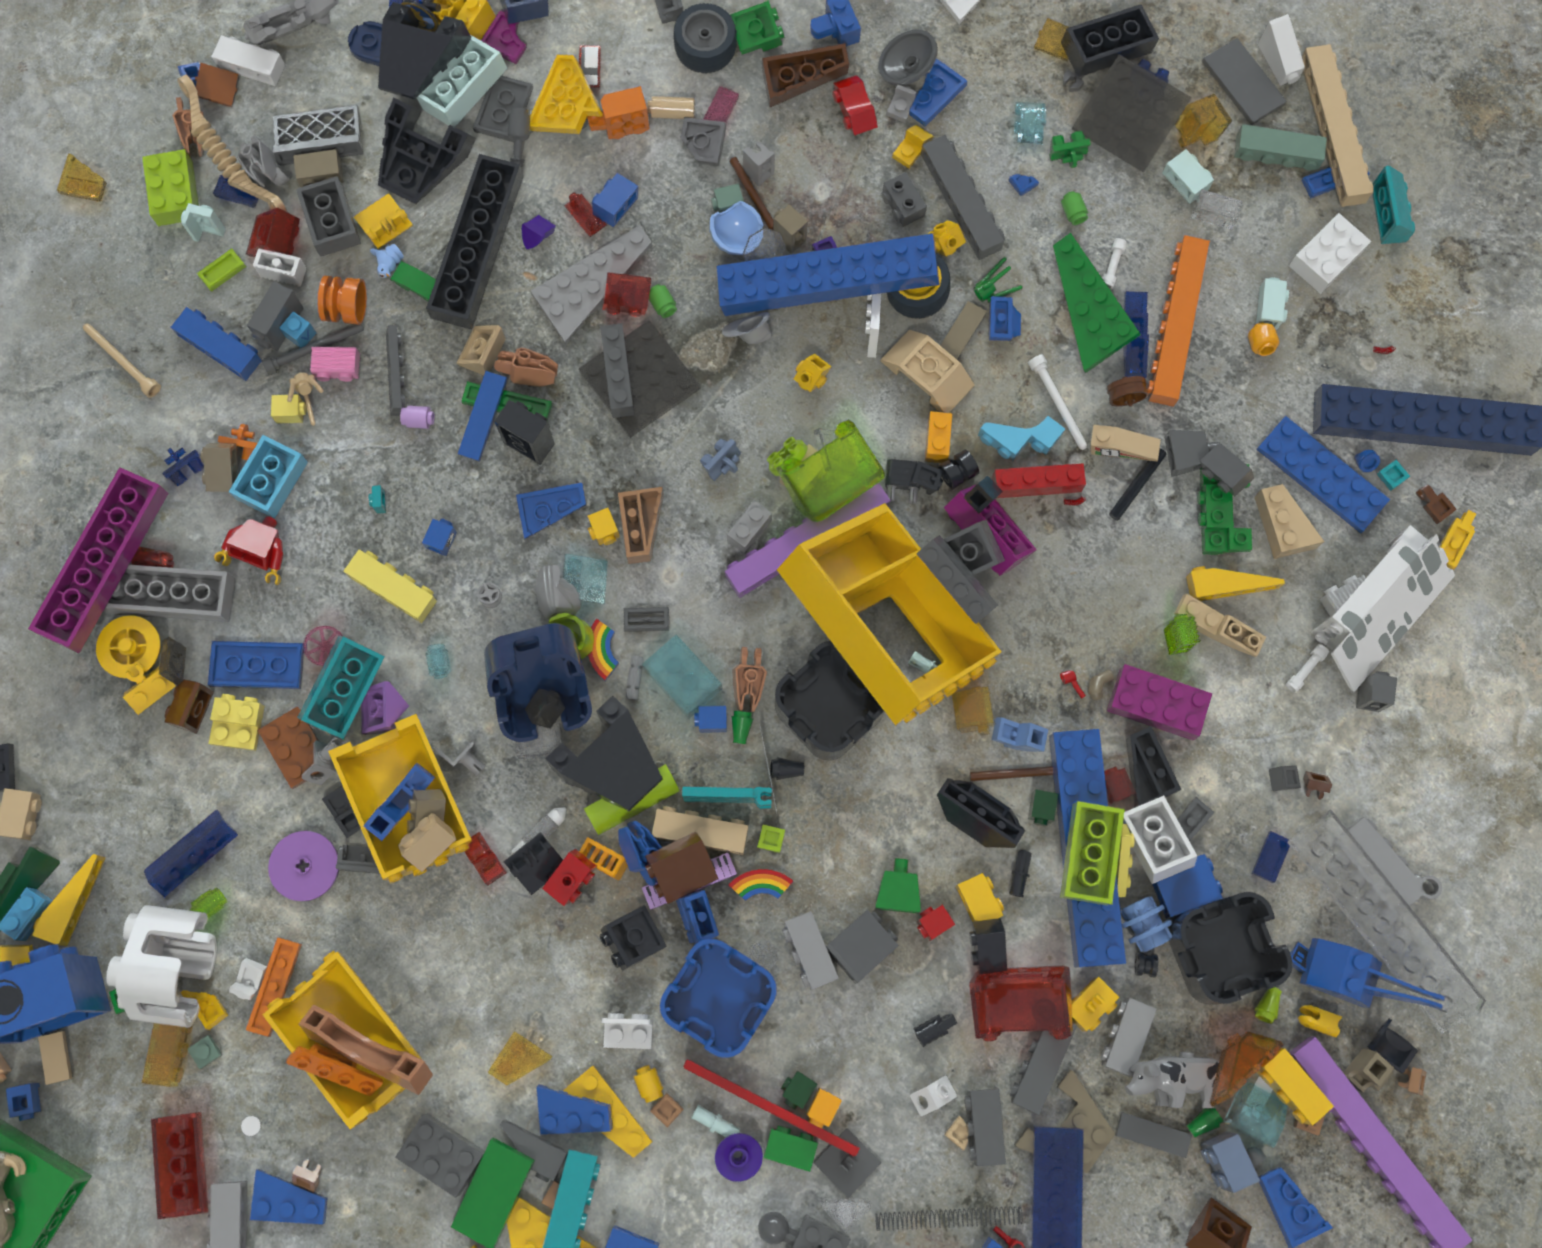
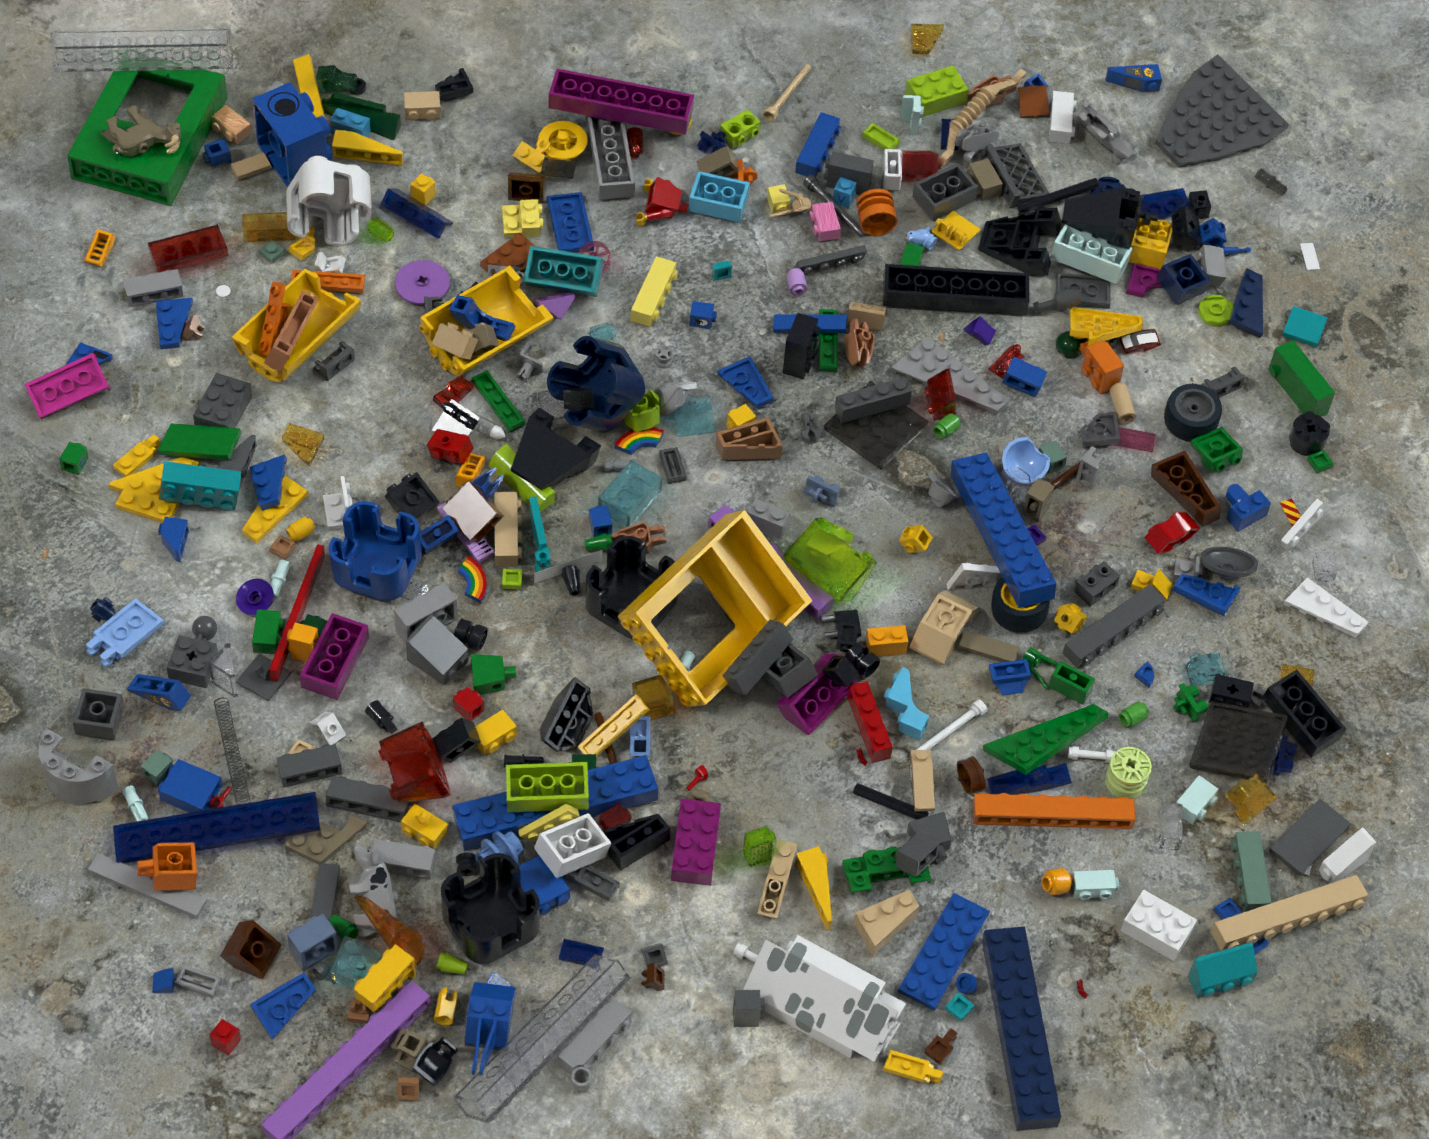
camera: 75 degrees right, 20 degrees down
(157, 837) = (423, 189): none -> yellow brick
(163, 430) = (740, 128): none -> lime brick
(363, 96) = (1058, 195): none -> black axle
(401, 998) = (335, 362): none -> dark grey hinge
(507, 805) = (498, 401): none -> green tile
(576, 144) = (1068, 345): none -> dark green hair
(629, 453) = (809, 429): none -> flat silver bar
(843, 902) = (471, 634): none -> black wheel
(846, 1072) = (334, 656): none -> magenta brick
(1007, 762) = (614, 726): none -> yellow tile
(1029, 258) = (1071, 682): none -> green brick
(1068, 94) = (1231, 691): none -> black brick
(1150, 232) = (1128, 772): none -> yellowish green wheel

